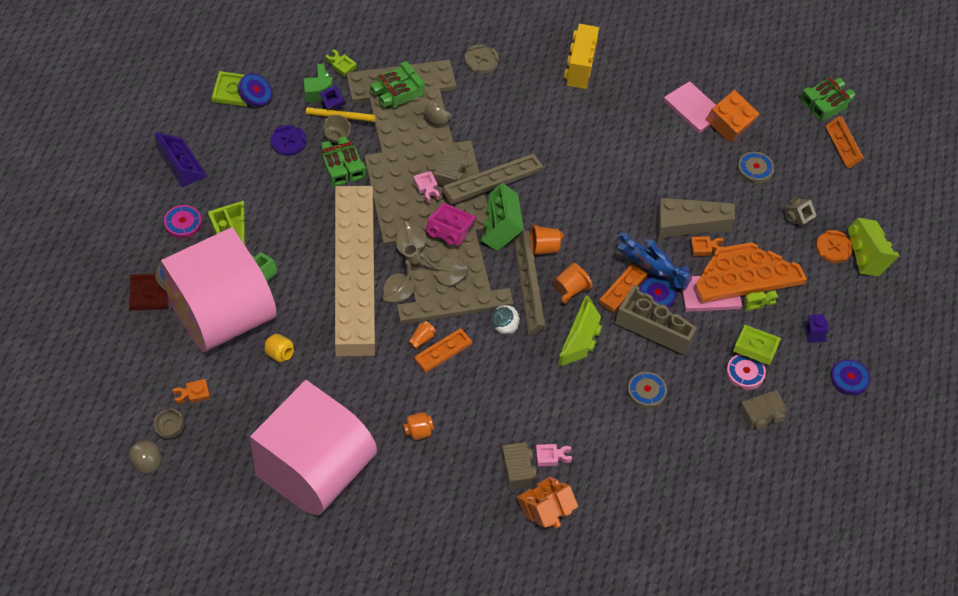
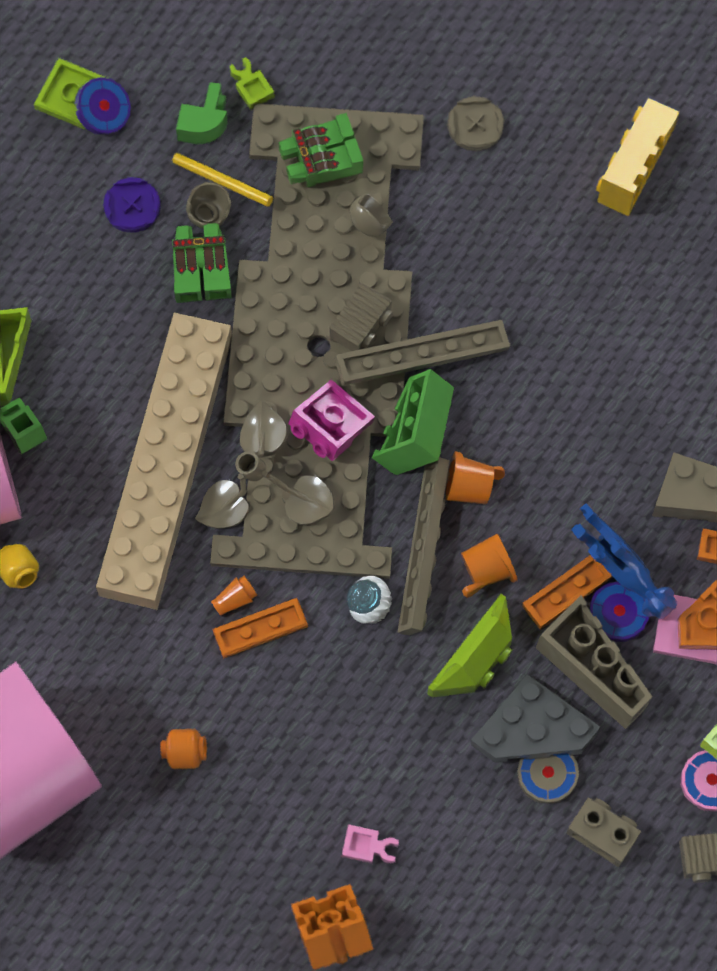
camera: 20 degrees right, 15 degrees up
(333, 98) = (217, 149): dark purple brick -> none
(427, 184) = (315, 340): bright pink plate -> none
(518, 465) = (311, 850): dark tan brick -> none
(630, 363) = (534, 726): none -> dark grey plate
(693, 412) = (604, 831): none -> dark tan brick

